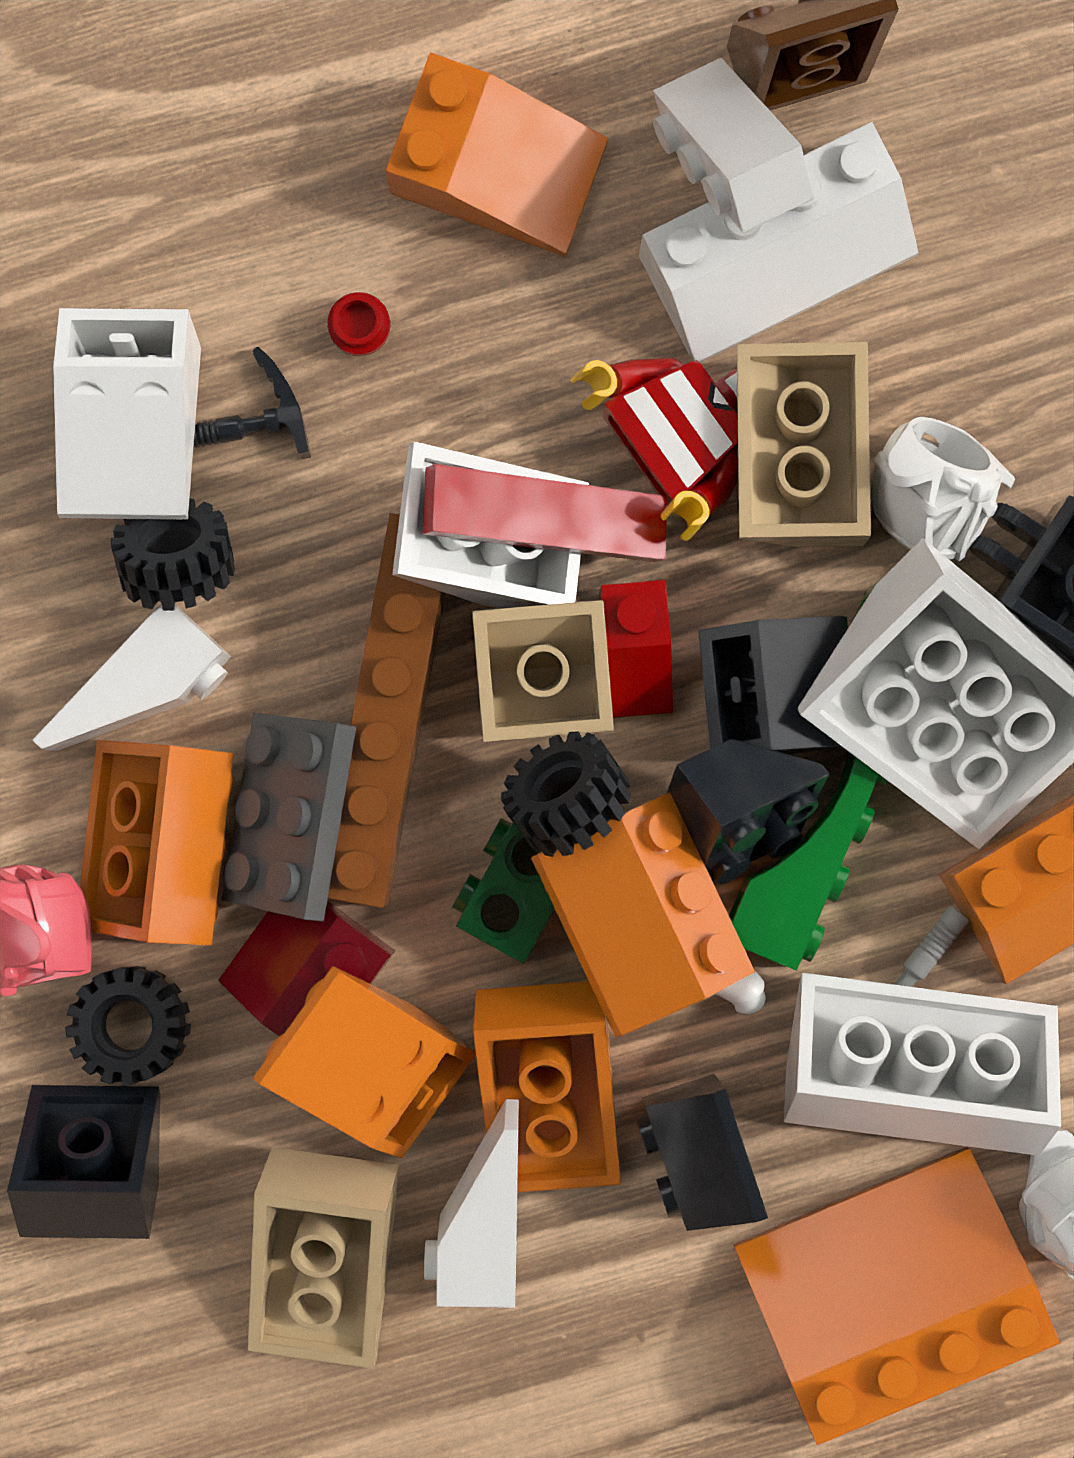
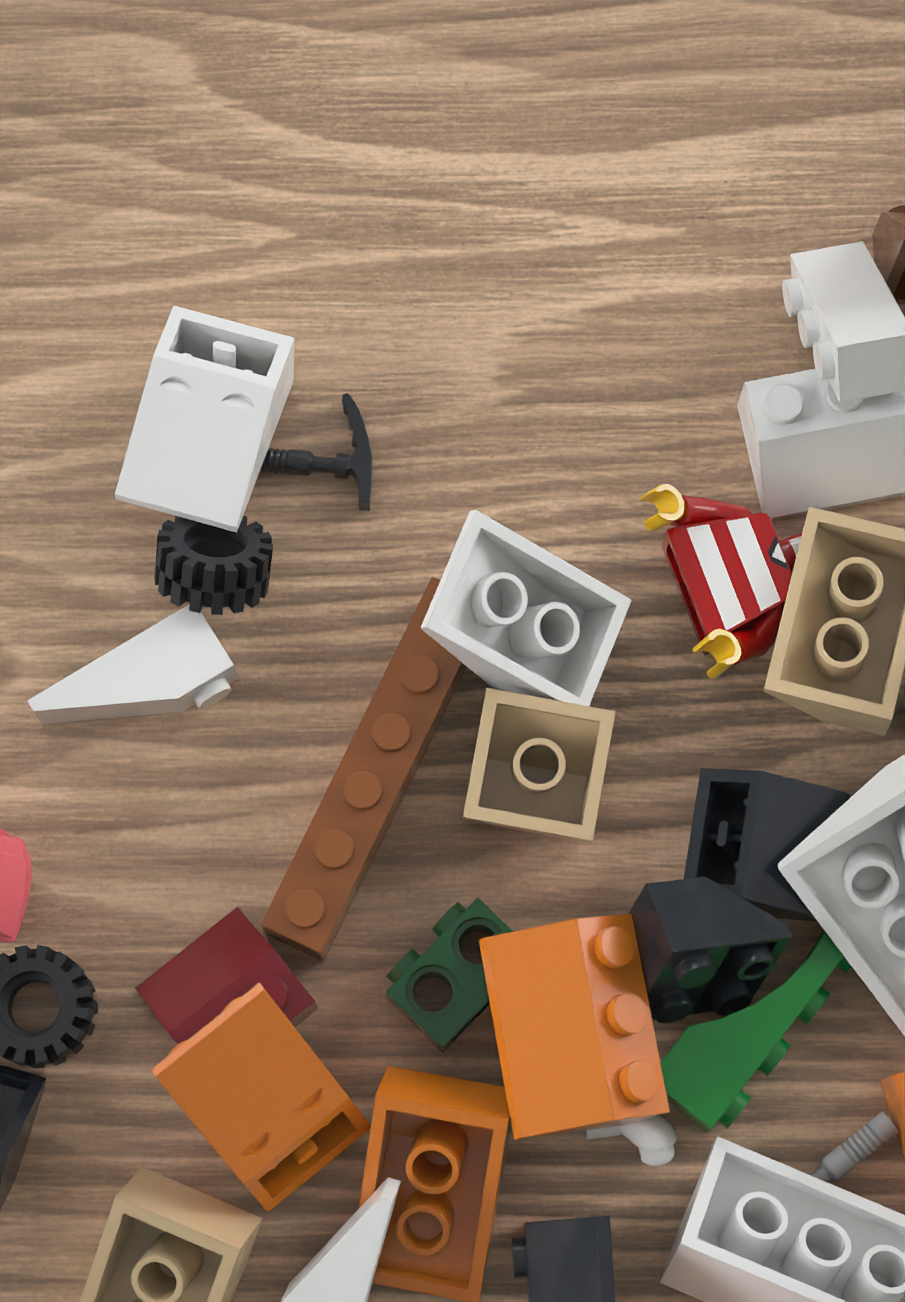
camera: 15 degrees right, 10 degrees down
(155, 841) = (116, 831): orange slope -> none
(288, 815) = (252, 840): dark grey plate -> none
(359, 324) = (450, 397): red plate -> none
(494, 156) = (623, 277): orange slope -> none
(543, 514) = (581, 614): tile -> none
(566, 794) = (530, 886): black tyre -> none
(638, 647) = (637, 773): red slope -> none

